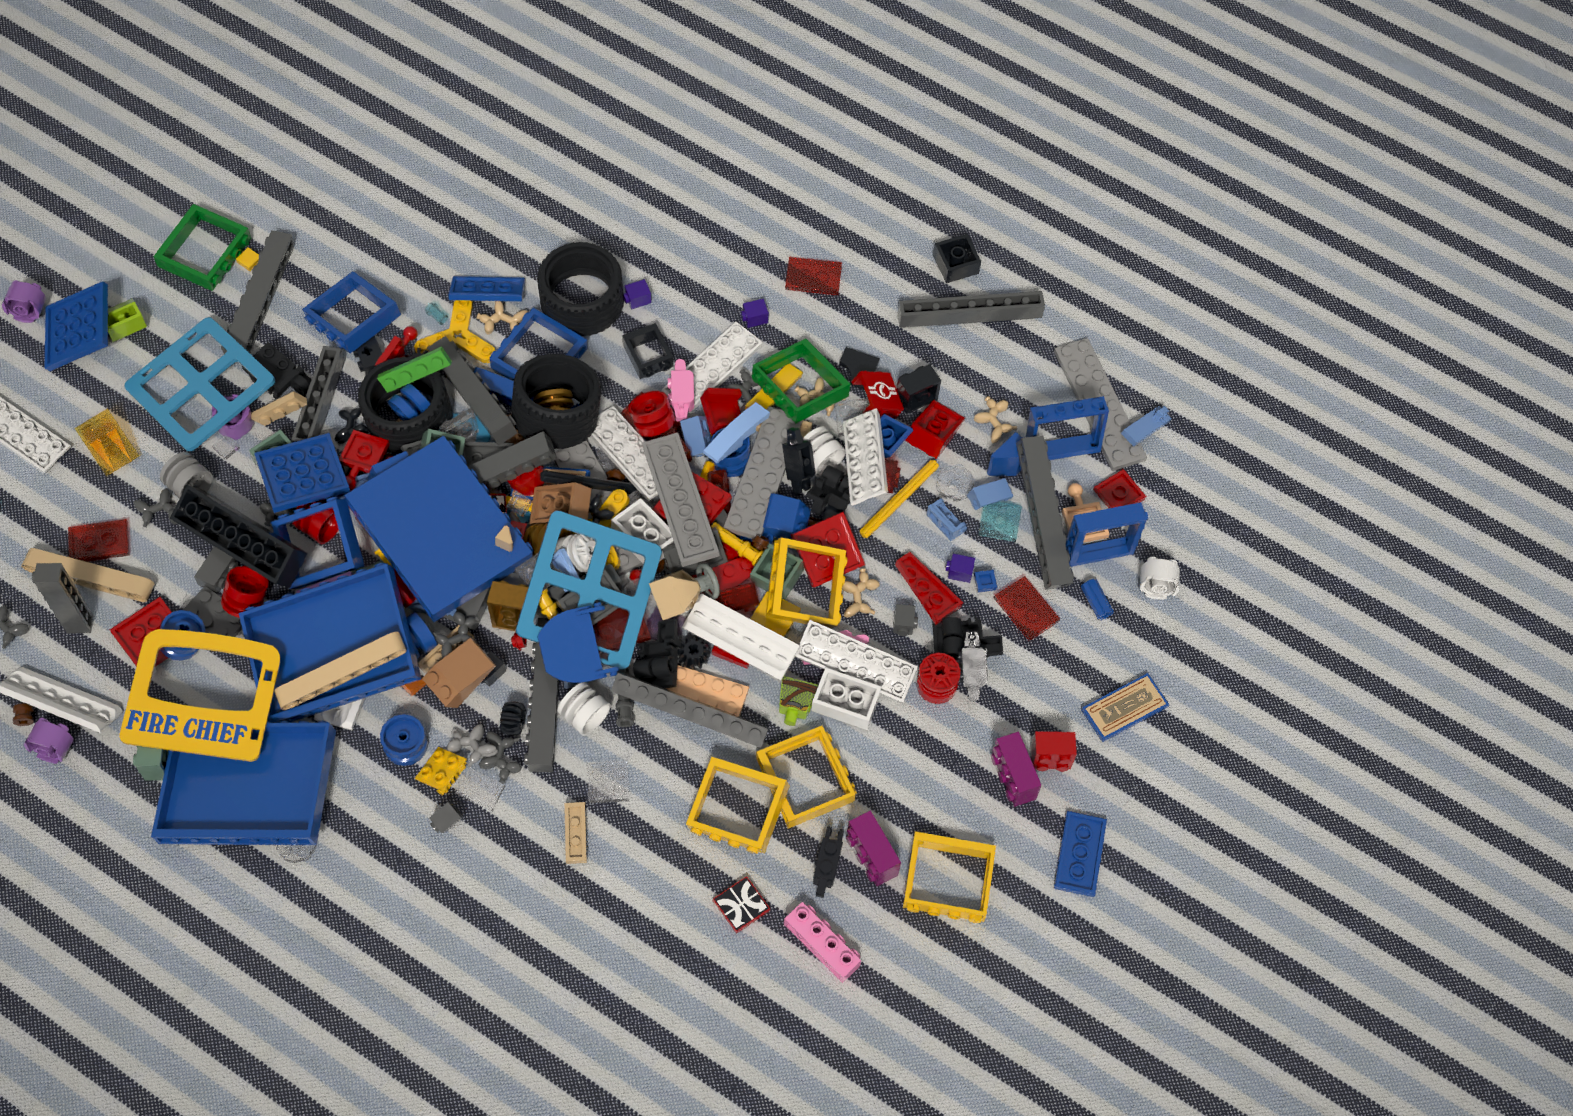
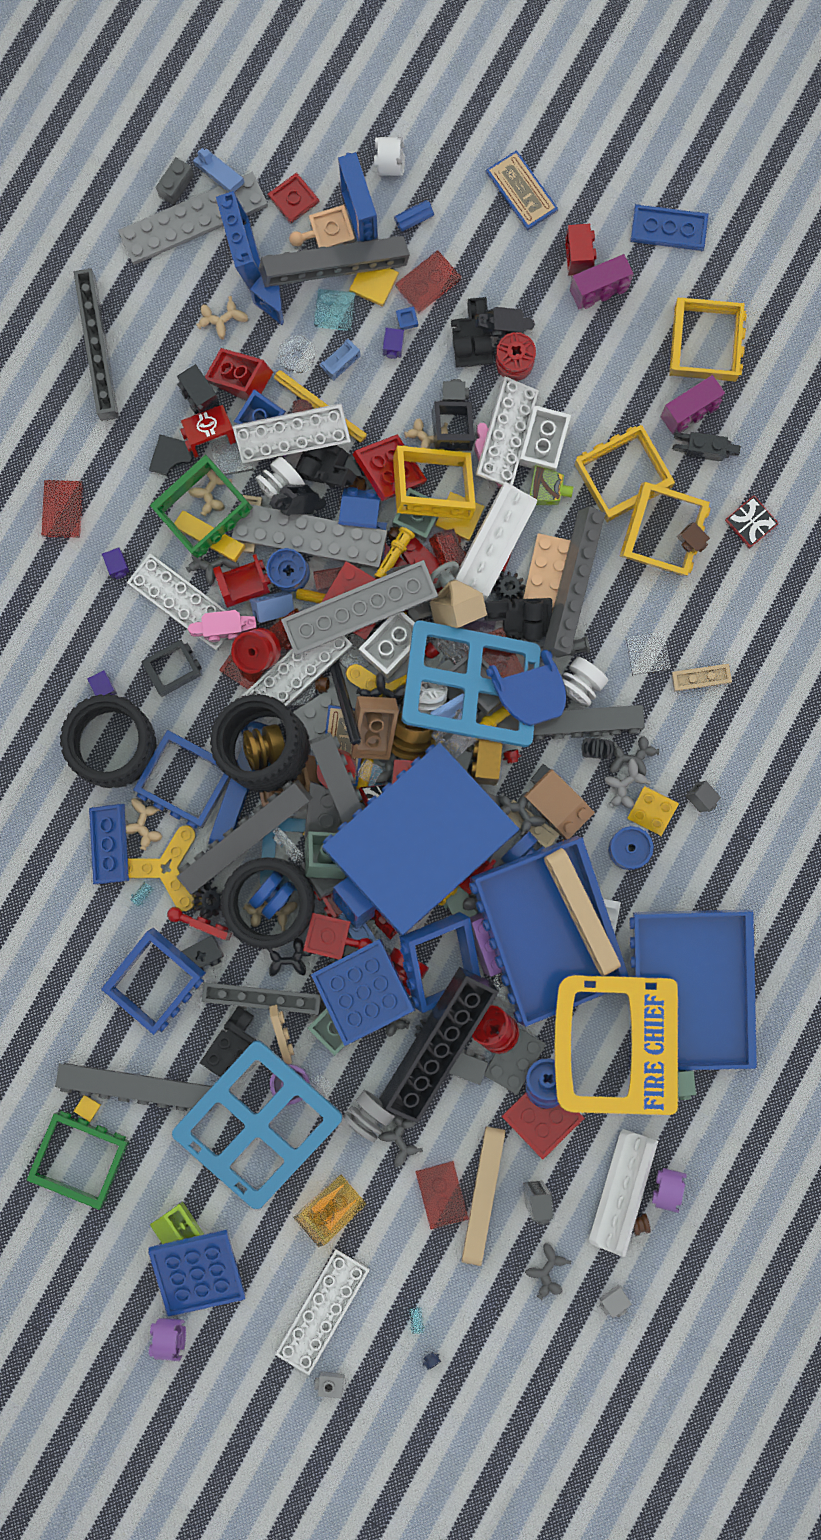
camera: 90 degrees left, 20 degrees up
(414, 369) = (240, 890): bright green plate -> none
(480, 789) = (668, 770): clear plate -> none
(504, 539) = (433, 767): tan slope -> none
(721, 825) = (693, 538): none -> reddish brown brick
(733, 435) = (276, 560): light blue slope -> none
(760, 542) = (393, 529): reddish brown plate -> none
(822, 941) = (781, 446): bright pink brick -> none
(848, 611) = (453, 442): none -> black window
(930, 591) = (418, 372): red wing -> none
(957, 258) = (33, 361): black brick -> none
(989, 493) = (311, 318): medium blue hinge -> none
(1024, 559) = (374, 285): none -> yellow tile
(1136, 387) = (174, 181): none -> dark grey brick

